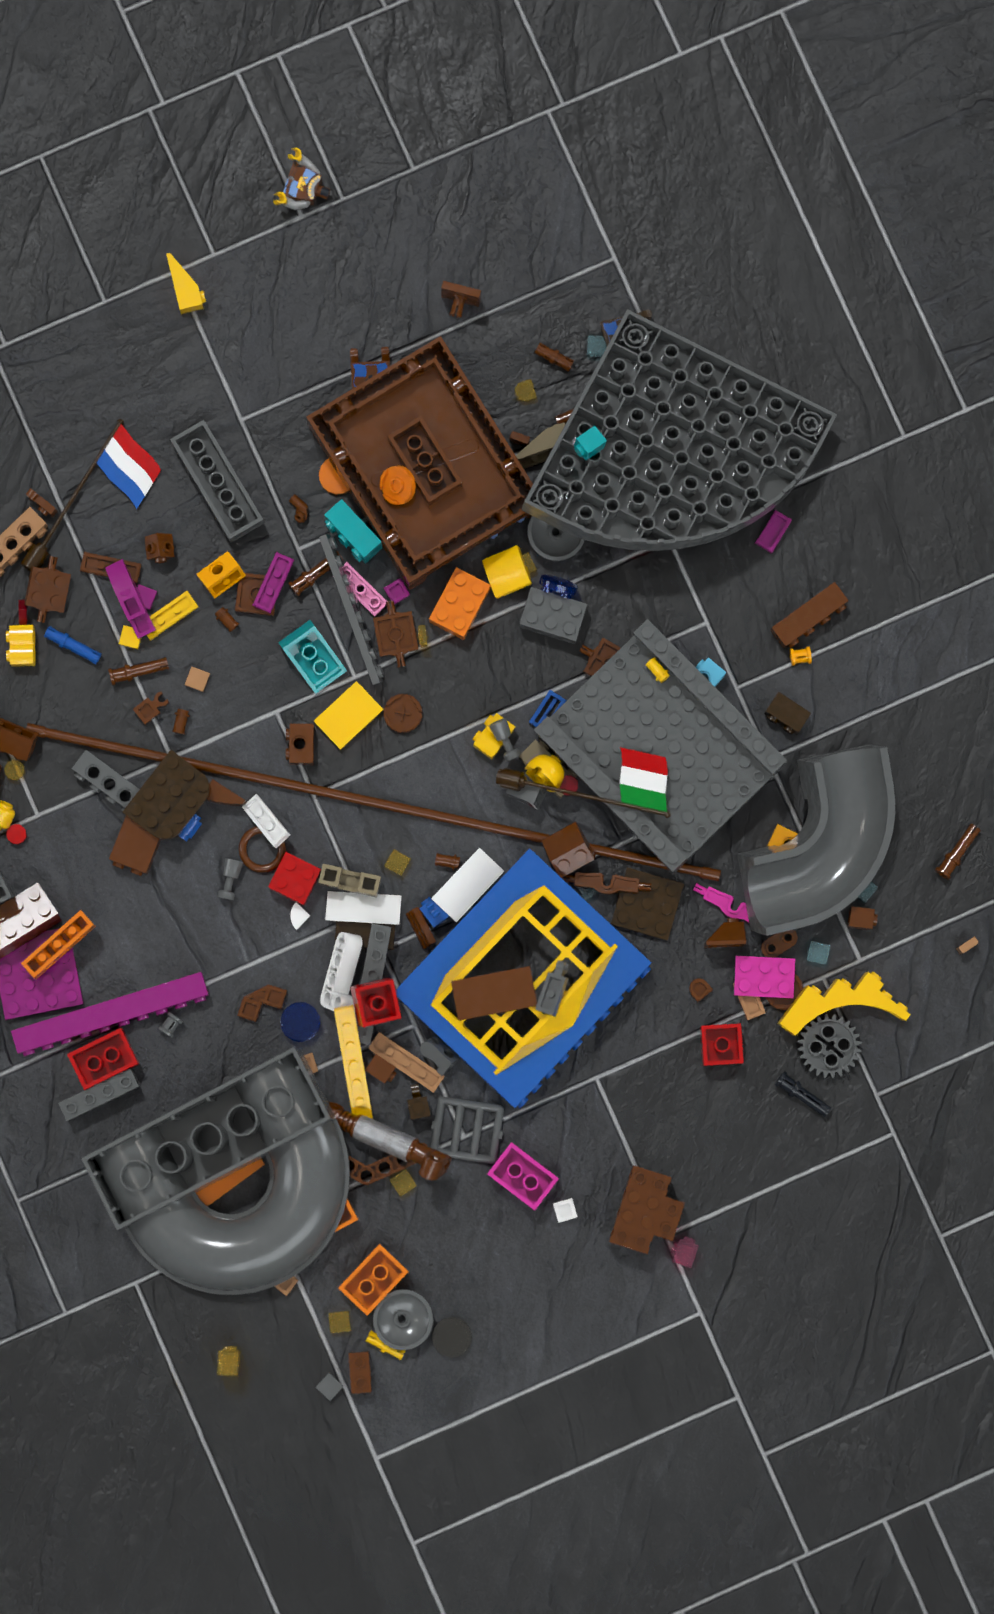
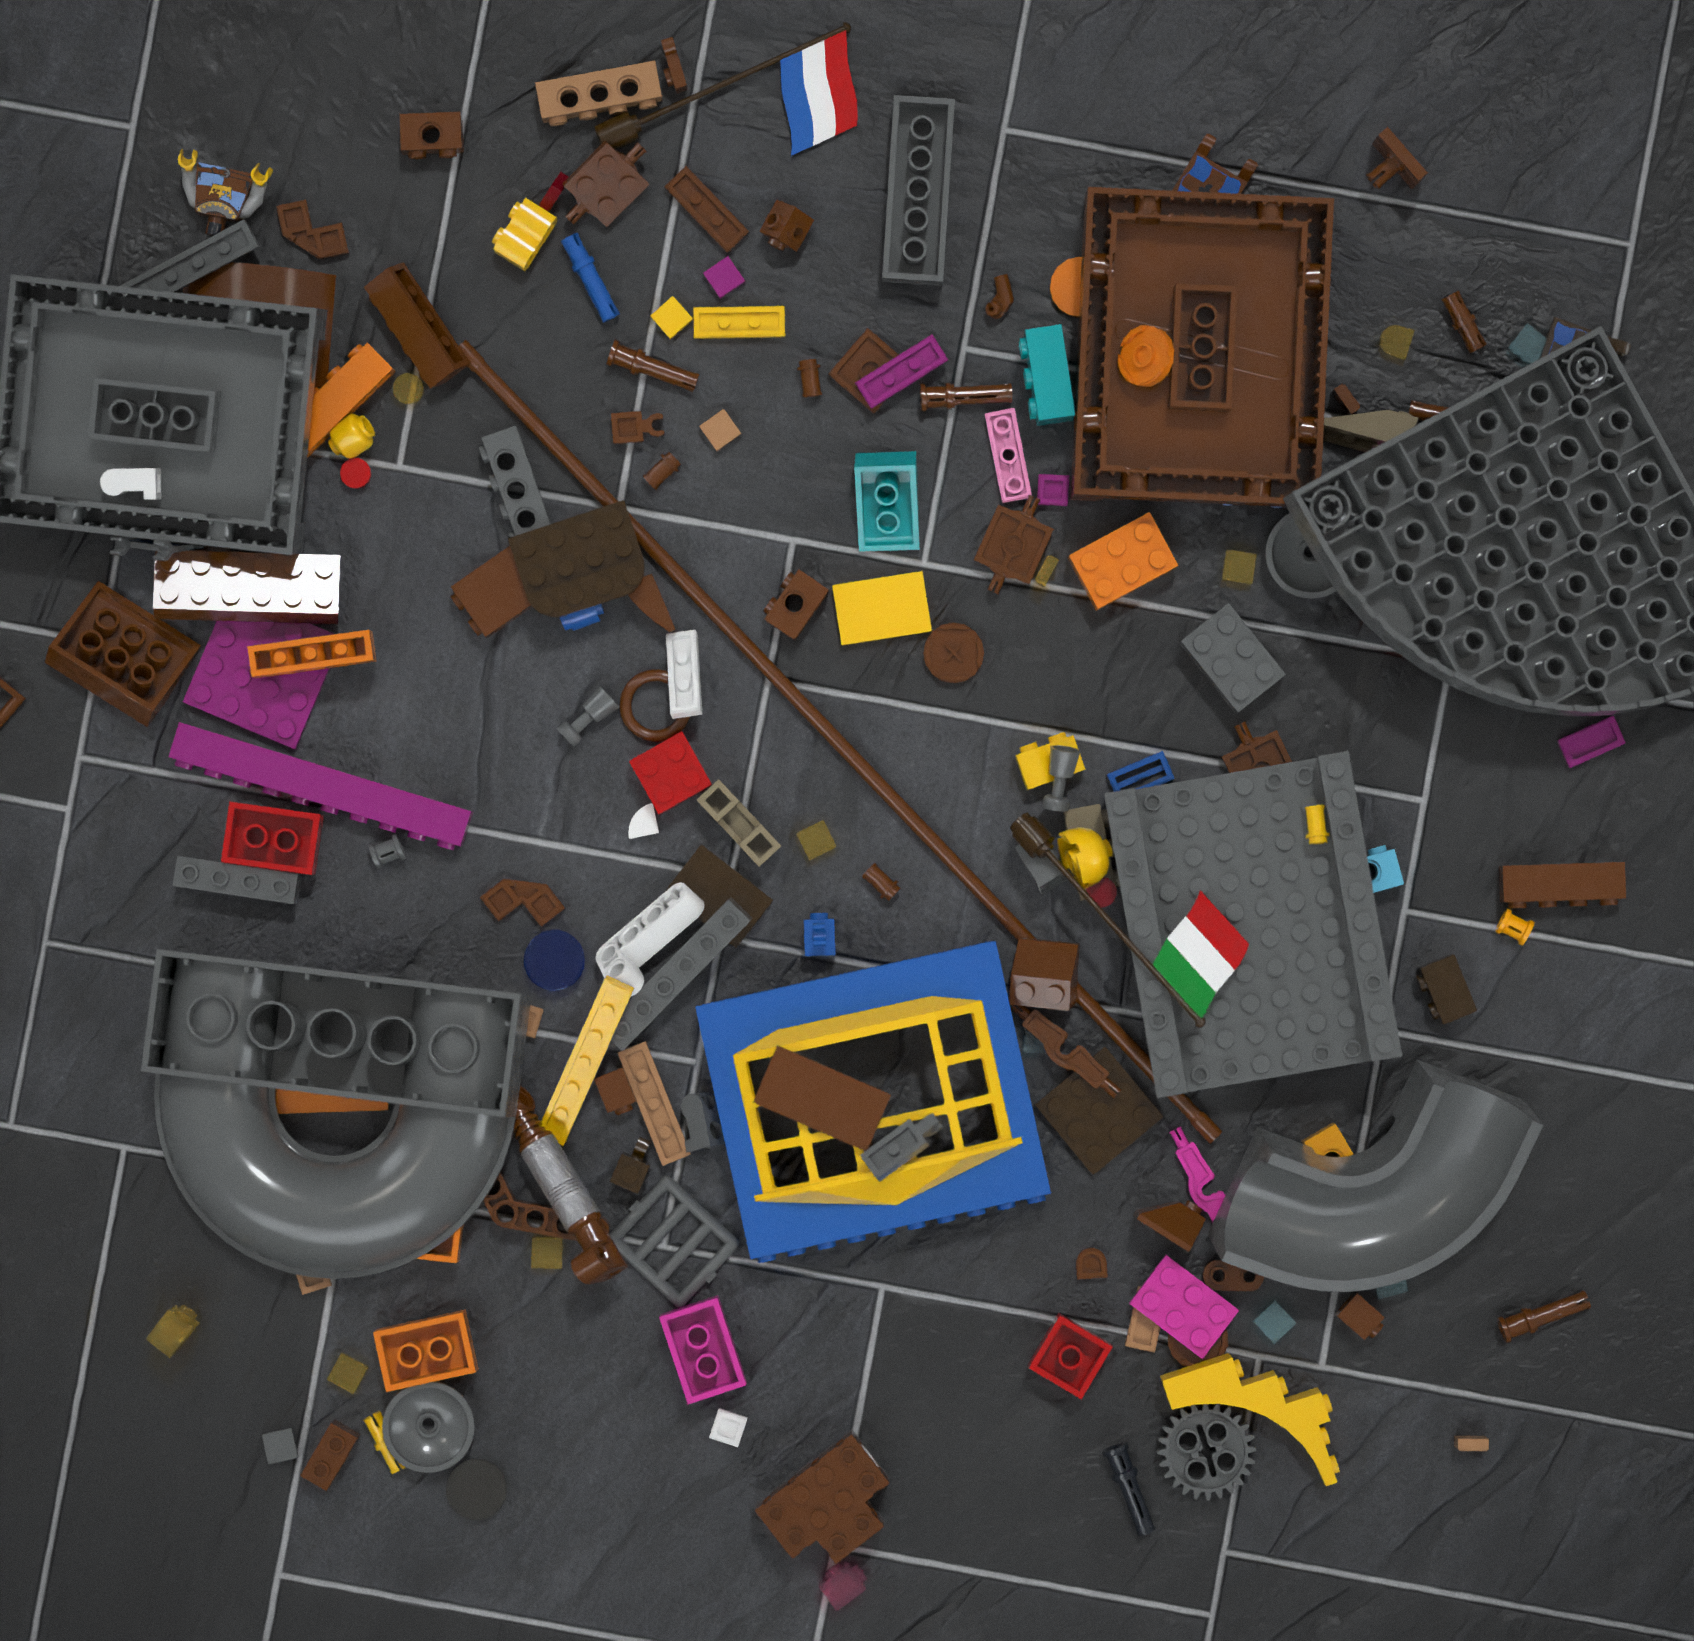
camera: 40 degrees right, 5 degrees up
(130, 598) = (702, 268): magenta slope -> none
(221, 574) = (841, 315): light orange brick -> none
(349, 600) = (982, 462): dark grey plate -> none
(363, 908) = (732, 870): white sticker -> none
(375, 1002) = (664, 1005): red brick -> none
(420, 927) = (788, 944): reddish brown tile -> none
(467, 885) = (886, 930): white sticker -> none
(507, 572) = (1211, 561): yellow slope -> none
(557, 584) = (1266, 624): clear blue tile -> none
(589, 443) = (1430, 473): teal brick -> none

